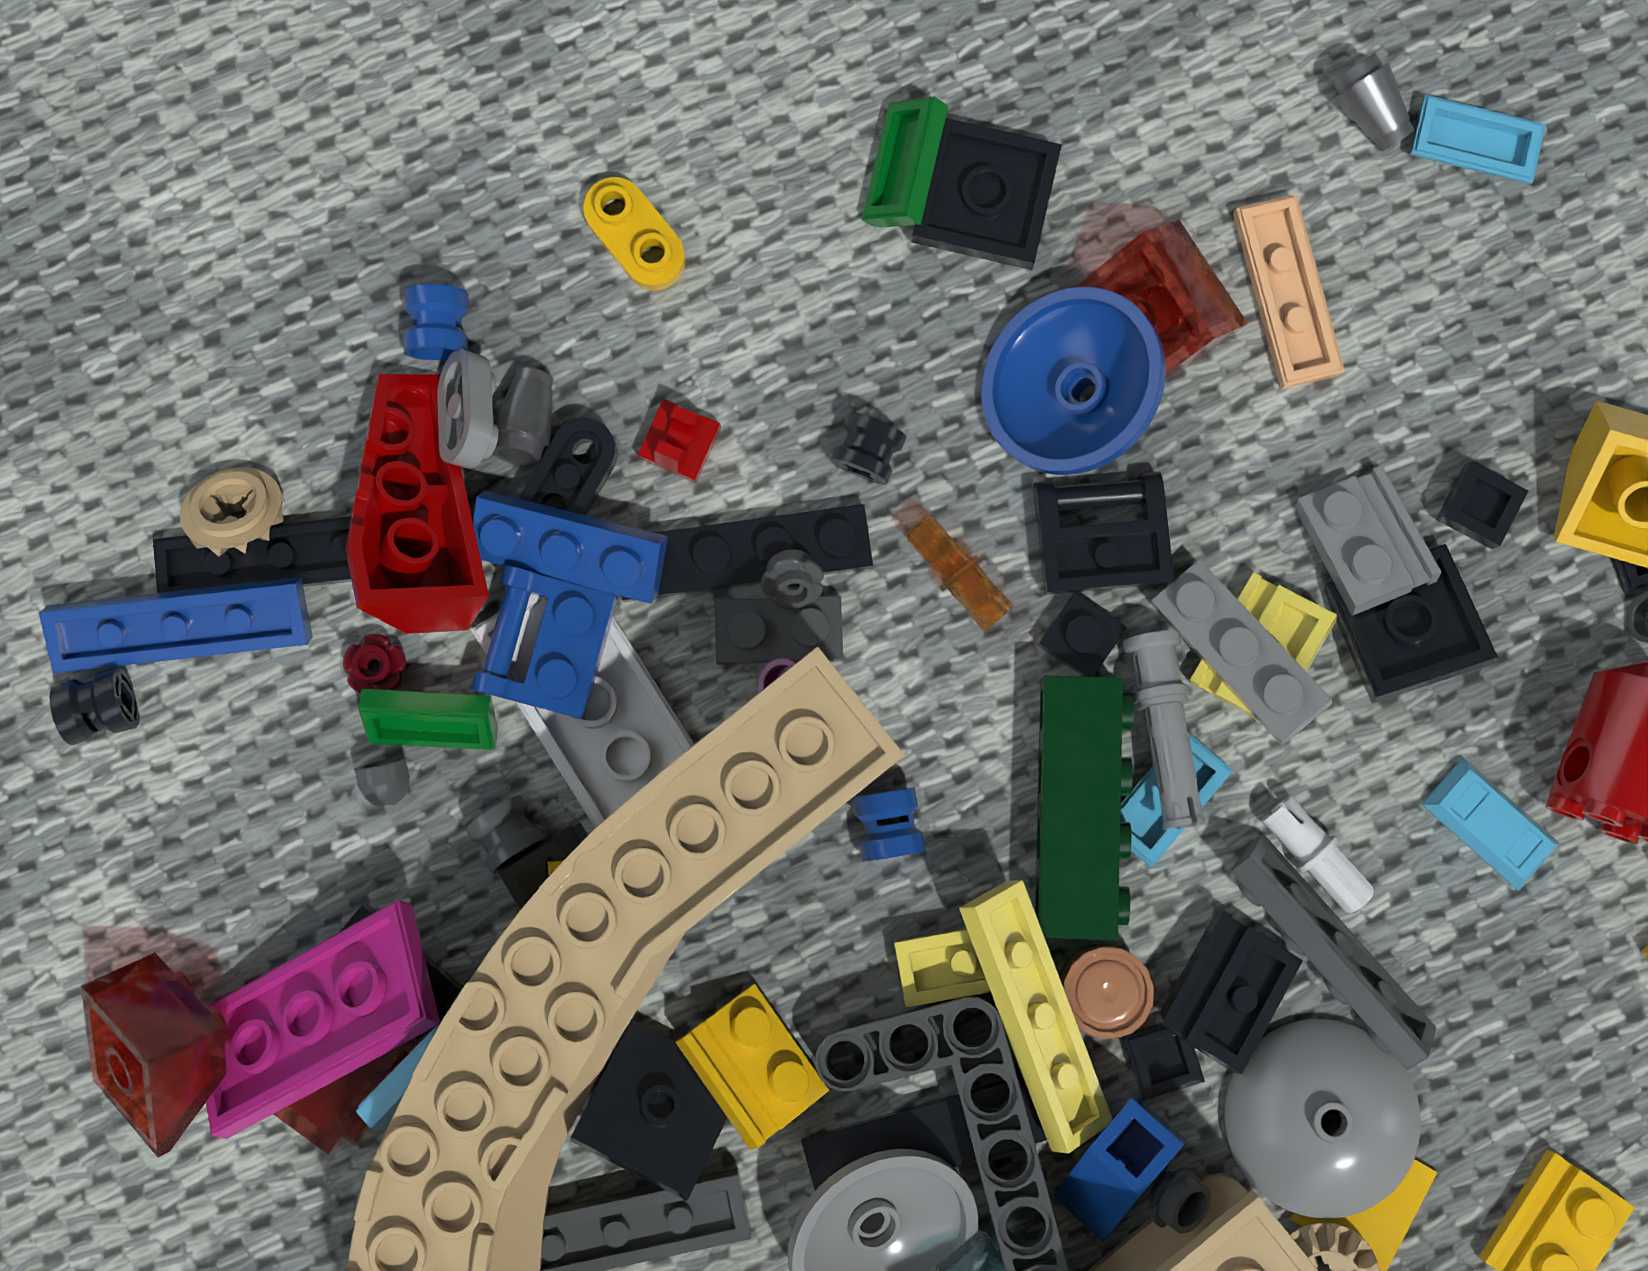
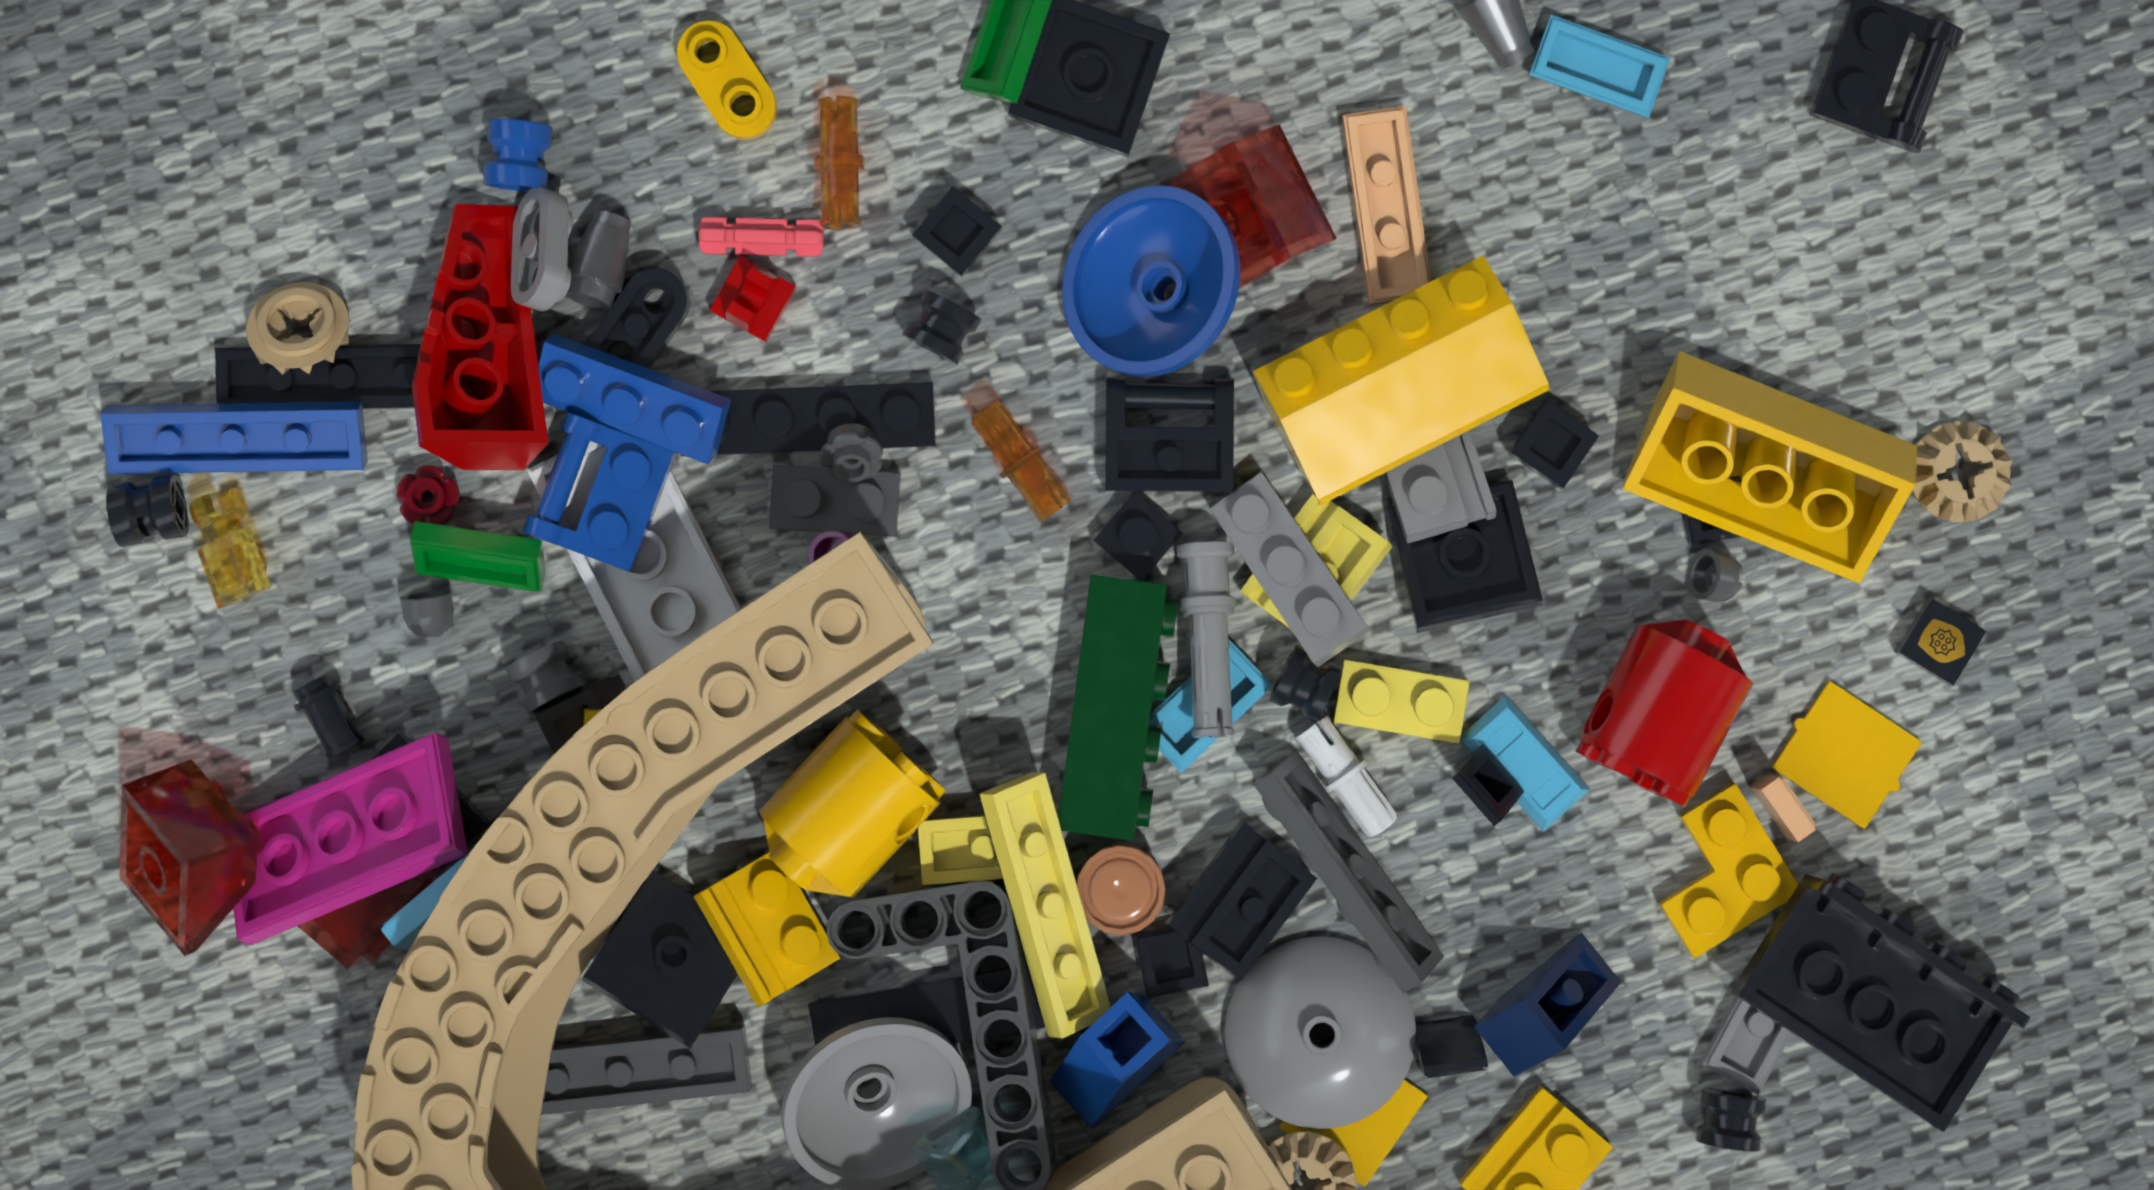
camera: 10 degrees right, 5 degrees up
(180, 742) = (230, 556): none -> clear yellow plate
(290, 894) = (328, 715): none -> black pin
(682, 379) = (761, 236): none -> coral axle
(751, 300) = (839, 163): none -> clear orange pin
(823, 937) = (847, 809): none -> yellow cylinder
(873, 355) = (957, 231): none -> black plate
(888, 839) = (926, 719): blue wheel -> none
(1179, 1200) = (1165, 1093): dark grey plate -> none
(1268, 765) = (1305, 684): none -> black wheel
(1331, 453) = (1401, 380): none -> yellow slope
(1361, 773) = (1401, 701): none -> light yellow plate
(1458, 1121) = (1449, 1047): none -> black slope
(1462, 847) = (1487, 784): none -> black slope
(1551, 1071) = (1548, 1006): none -> dark blue slope

